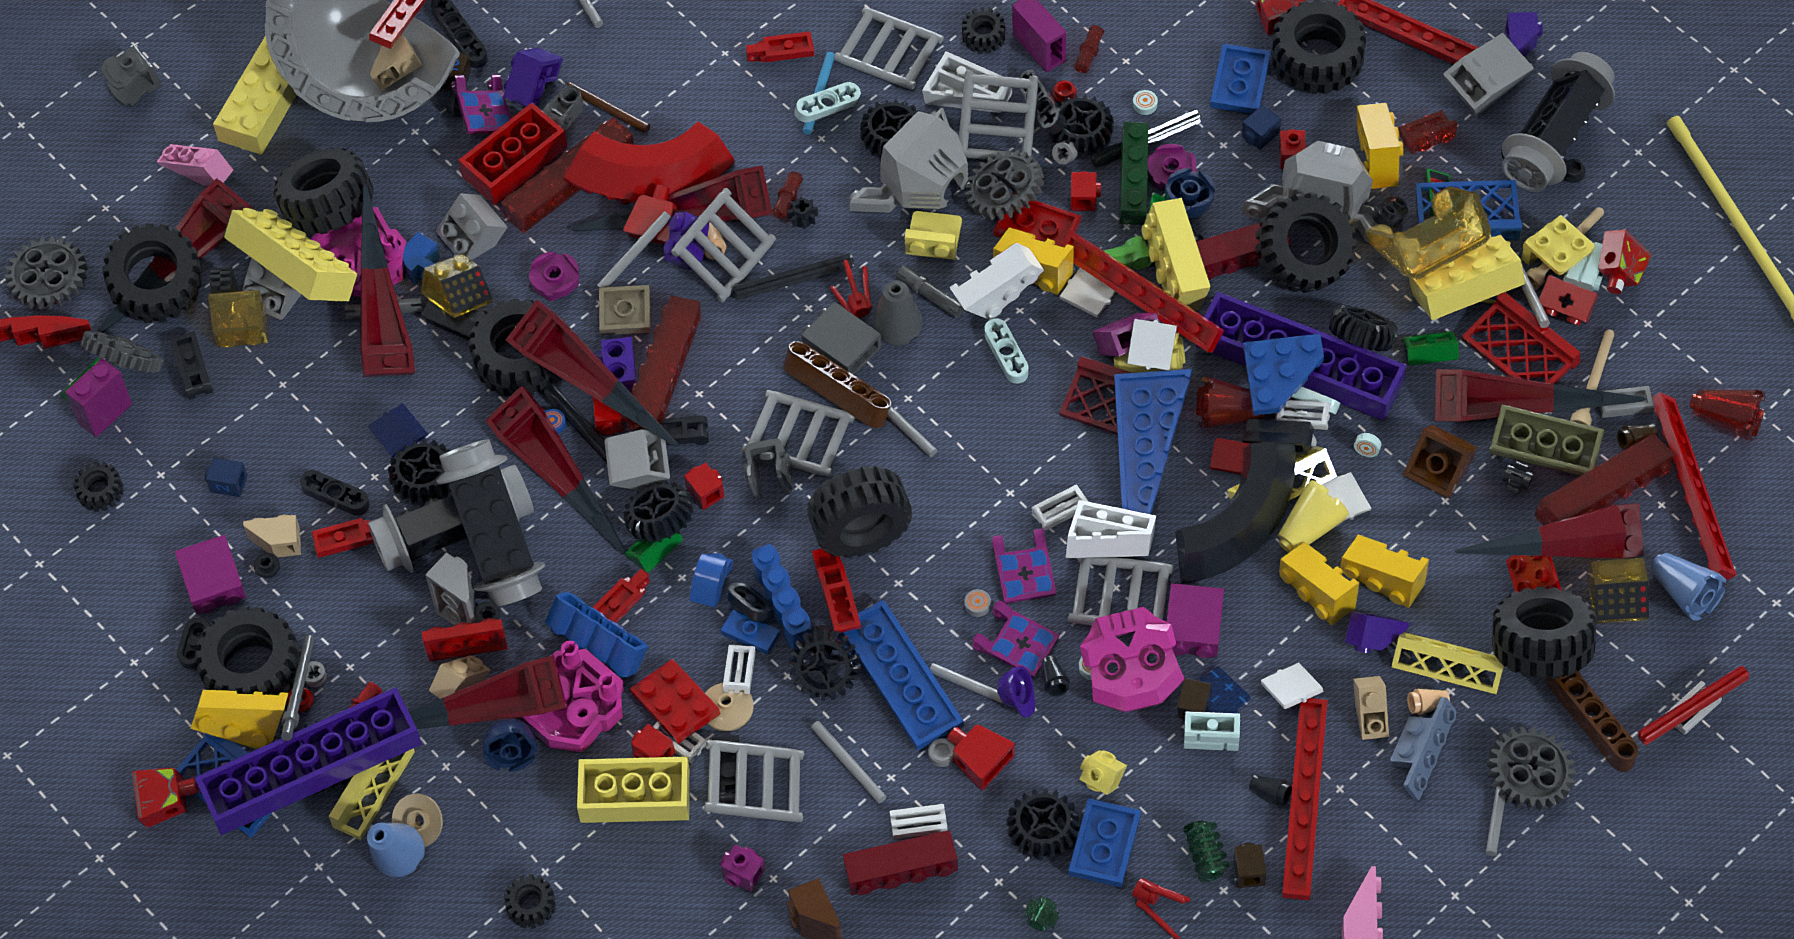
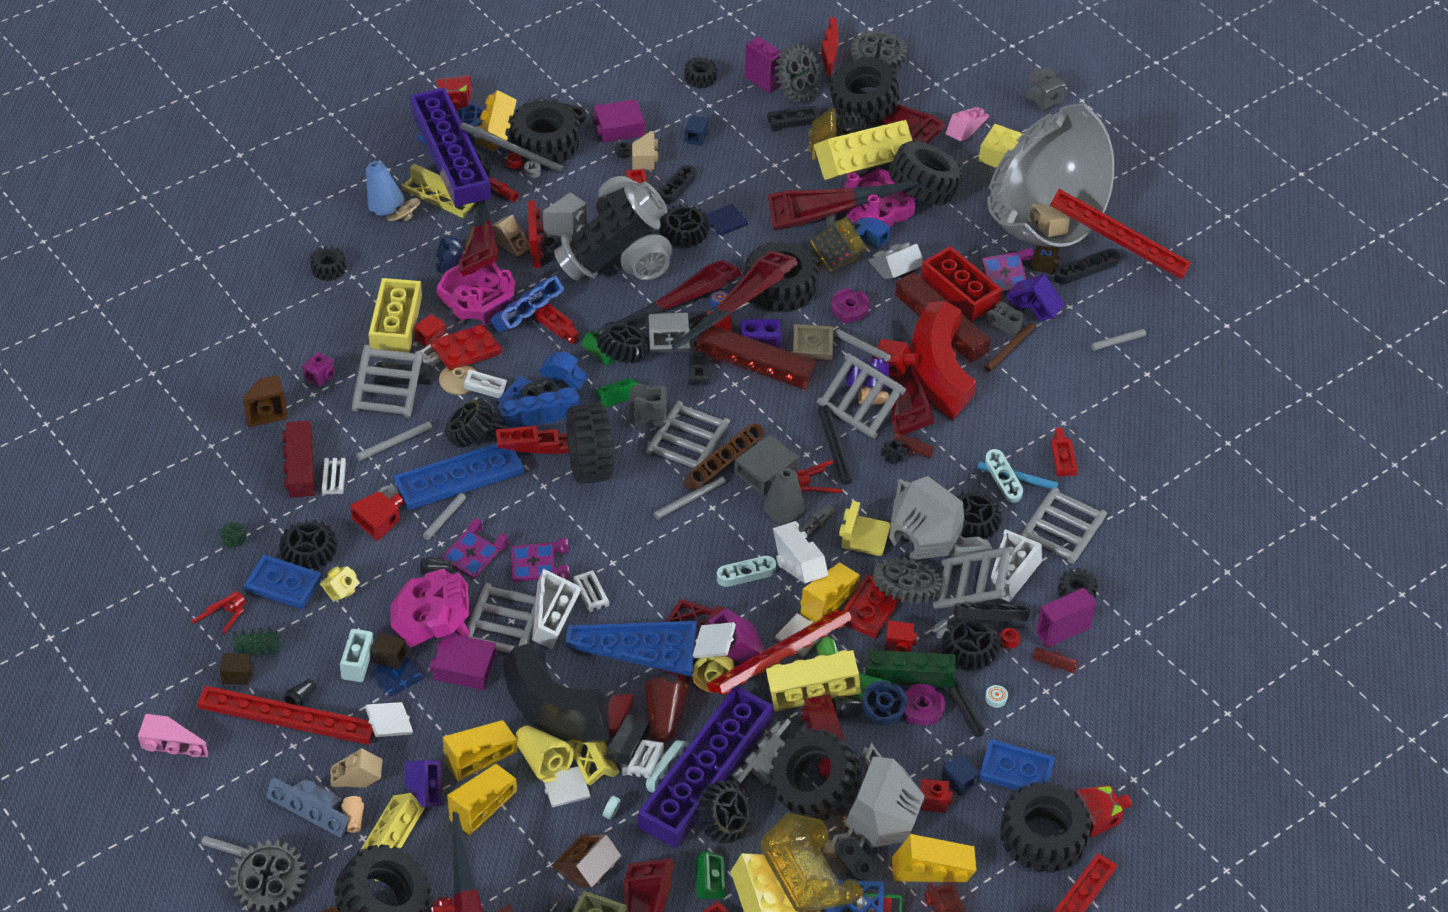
camera: 90 degrees right, 10 degrees down
(704, 485) = (646, 373): red brick -> none
(730, 519) = (615, 392): none -> green slope
(977, 603) = (513, 529): light grey tile -> none
(1017, 691) = (422, 540): dark purple hat -> none
(1272, 300) = (760, 761): none -> light grey bracket
(1280, 369) = (683, 736): blue plate -> none

